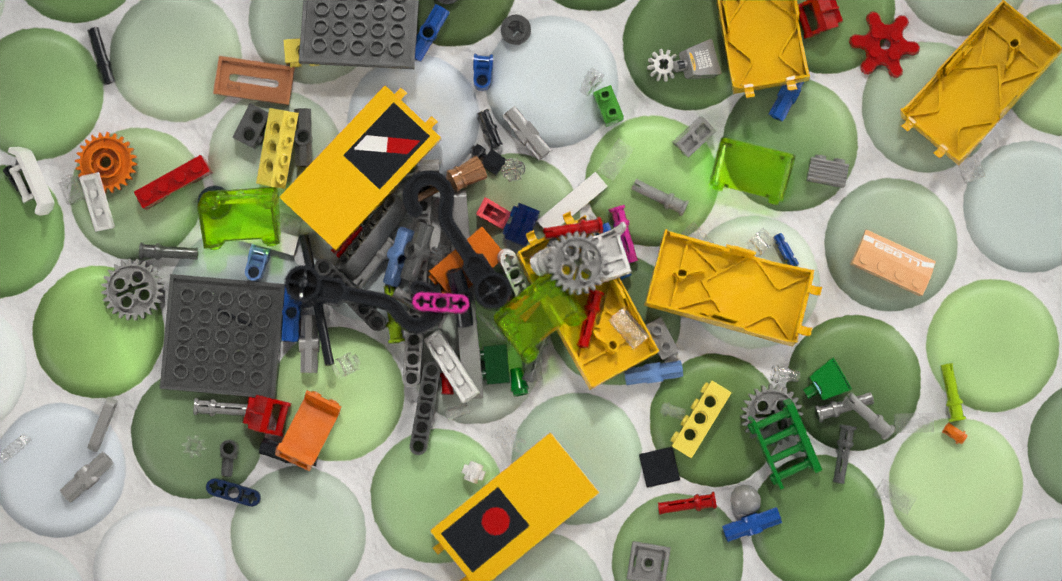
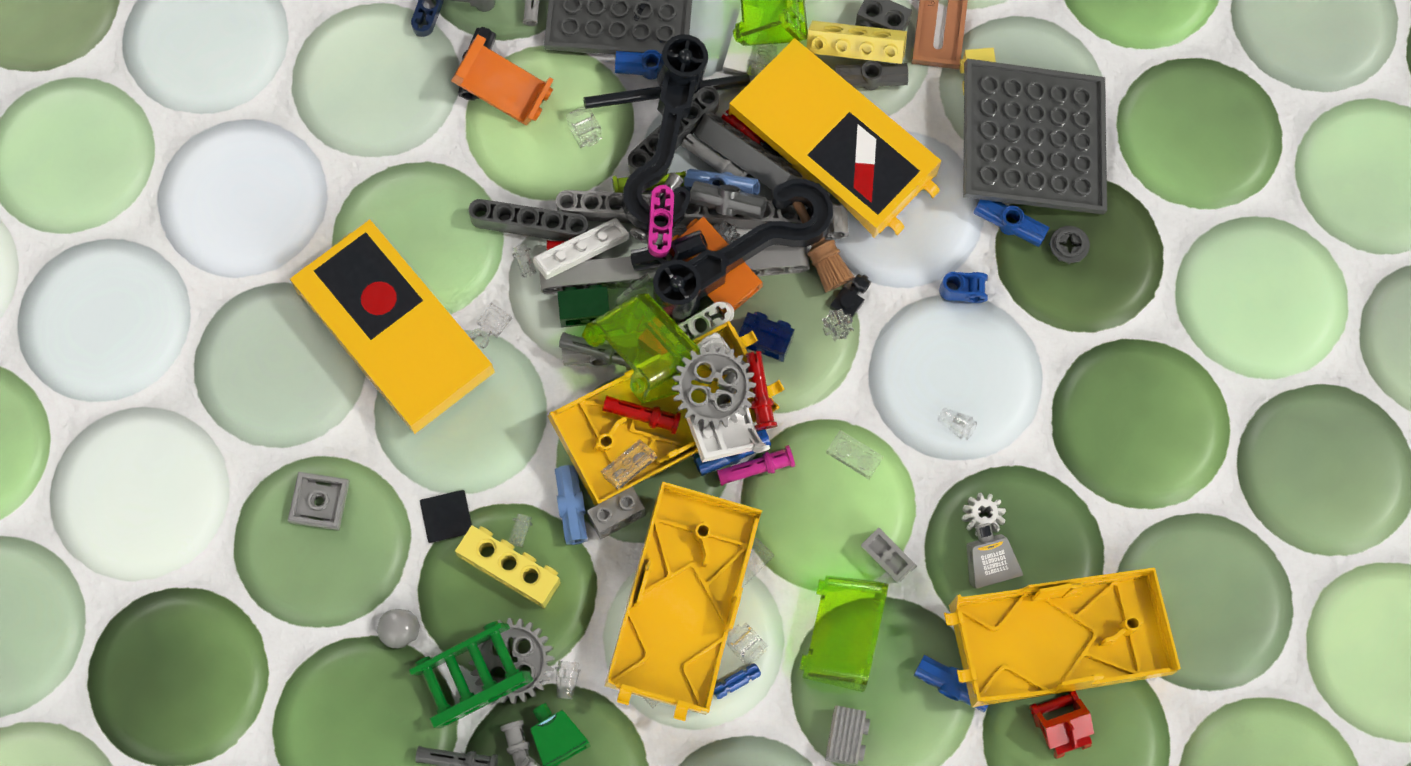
camera: 85 degrees right, 15 degrees down
(257, 261) = (714, 24): medium blue piece -> none
(259, 414) = (524, 27): red piece -> none
(309, 344) = (608, 82): light grey piece -> none
(473, 472) = (445, 279): white gear -> none
(490, 128) = (890, 297): black pin -> none
(493, 213) = (781, 298): coral slope -> none
(512, 21) = (1032, 325): dark grey gear -> none
(518, 386) = (553, 332): green cone -> none
(526, 133) = (886, 342): light grey piece -> none
(573, 201) = (799, 404): white tile -> none
(608, 105) = (931, 440): bright green hips -> none
(668, 200) = (802, 522): light grey pin -> none
(697, 502) = (396, 561): red pin -> none
(752, 524) = (364, 635): blue piece -> none

